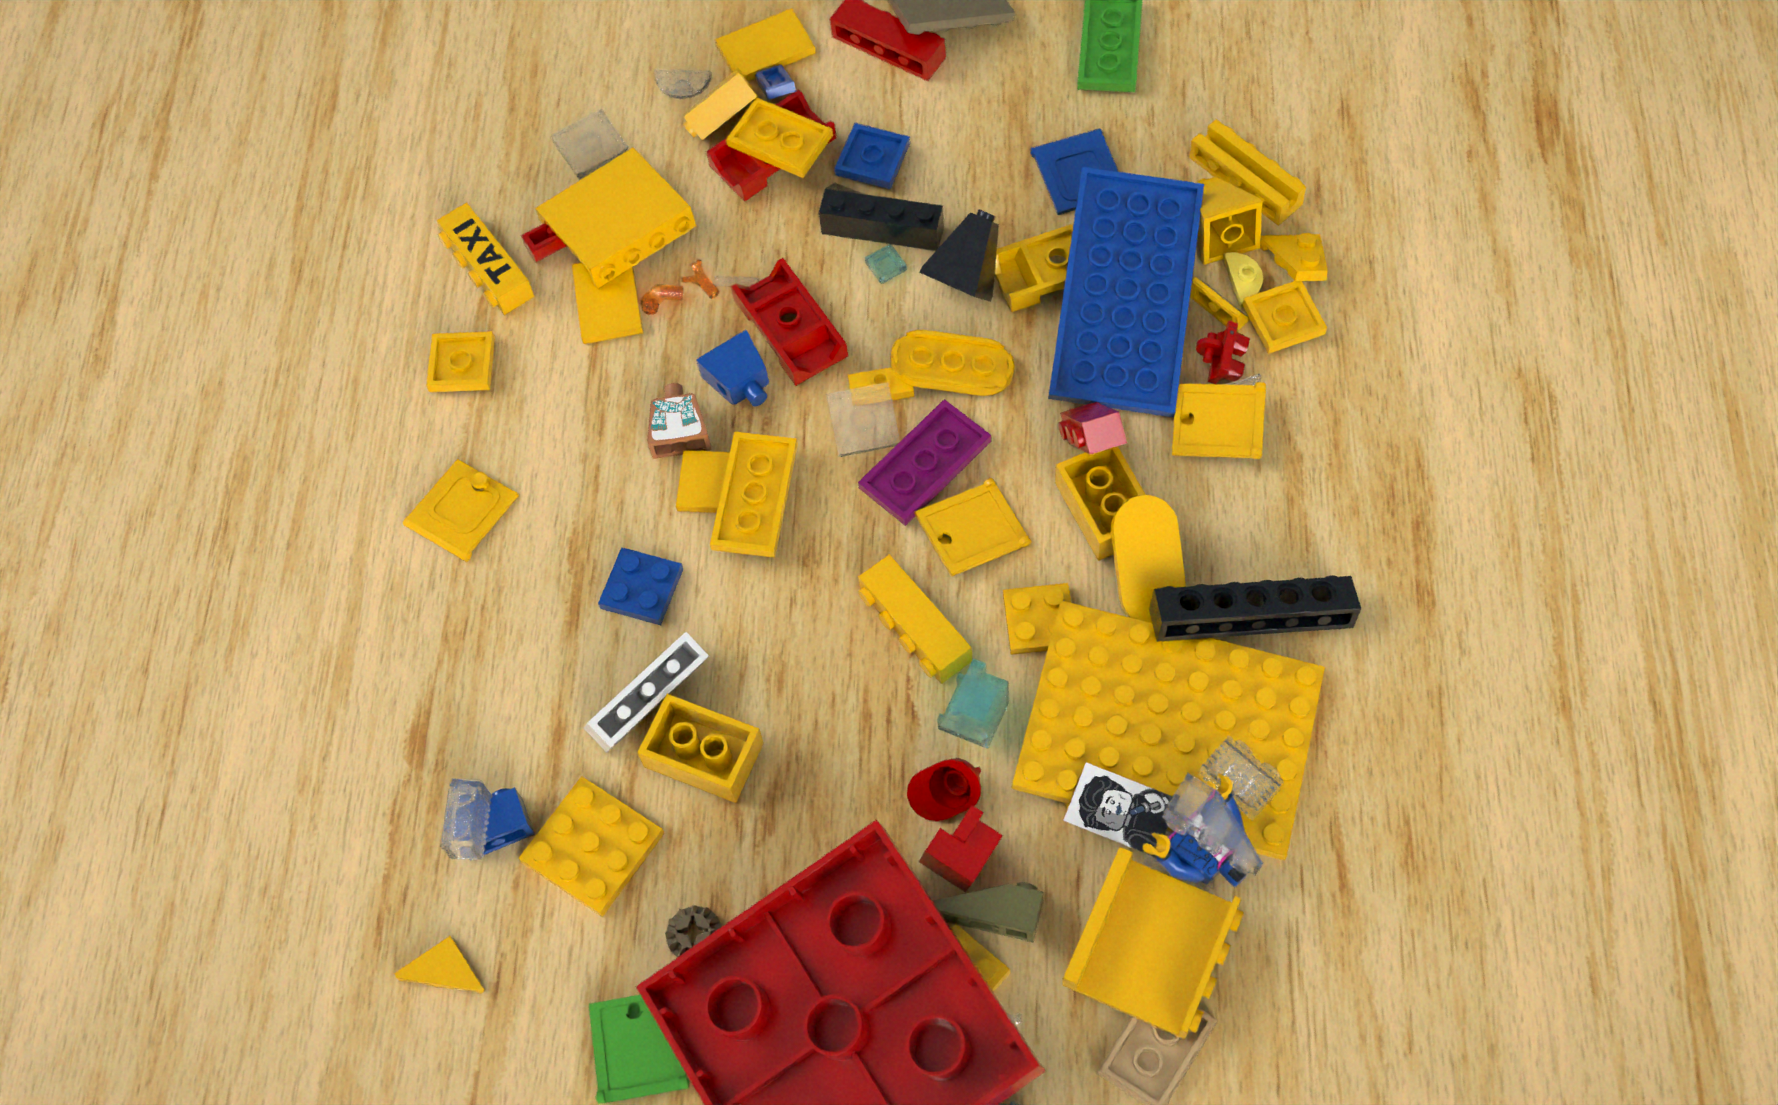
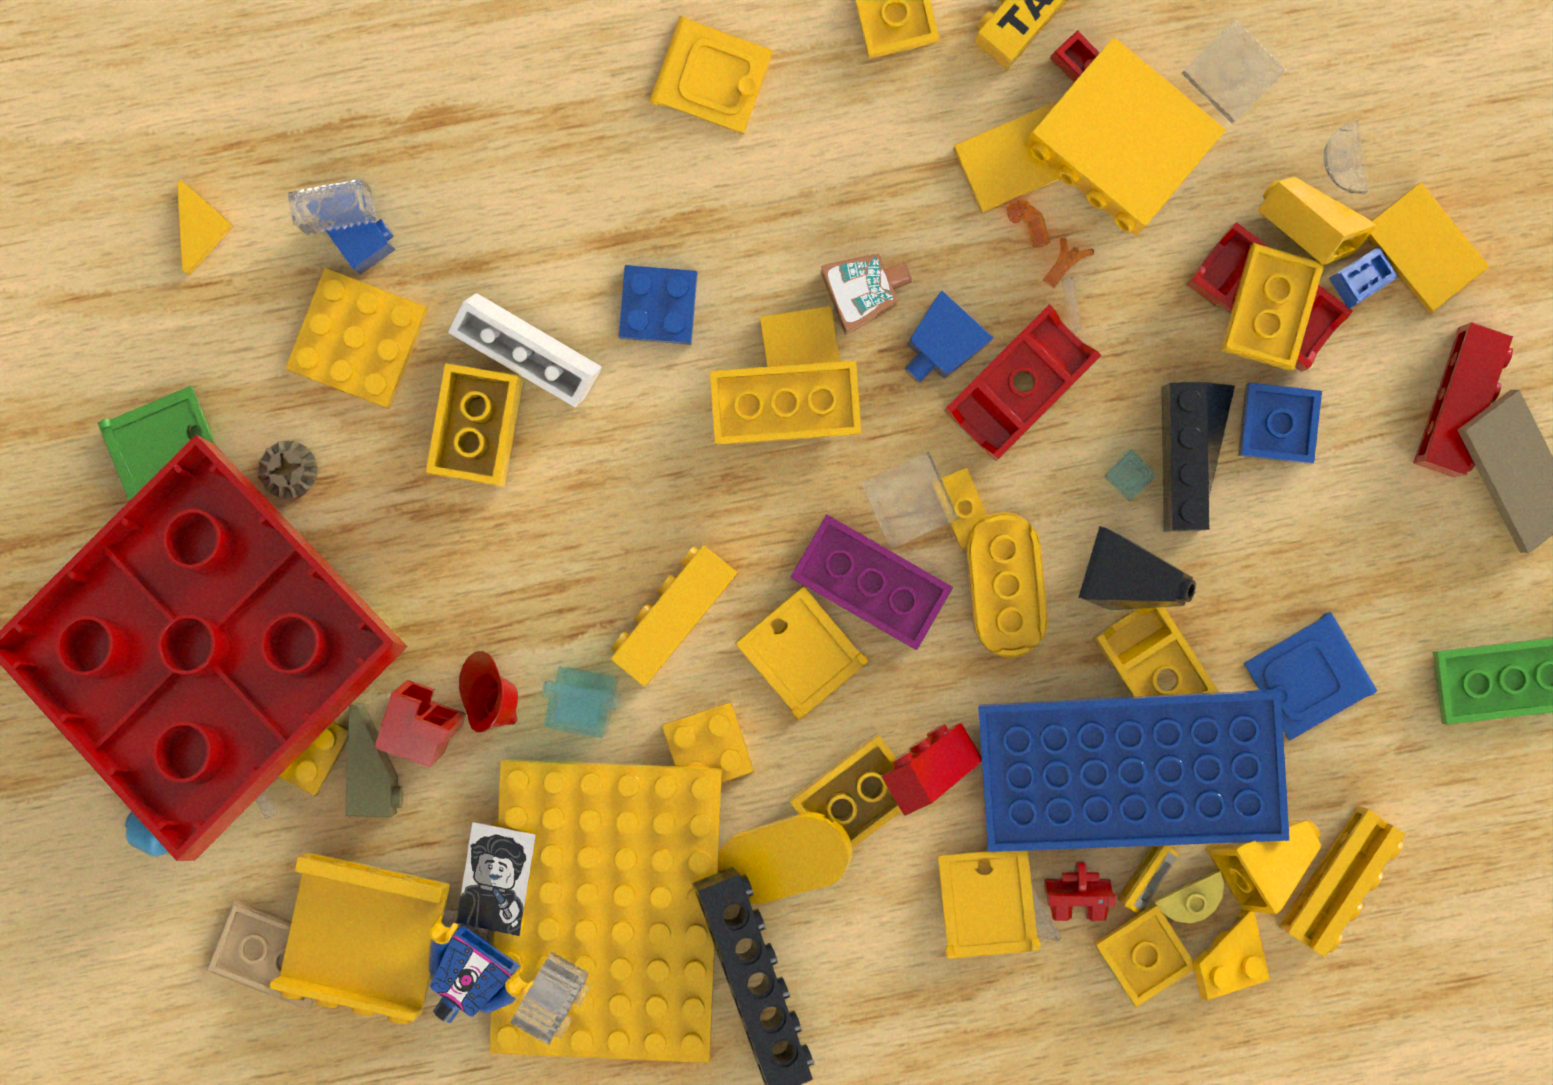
camera: 70 degrees right, 25 degrees up
(1206, 816) = (483, 971): clear slope -> none

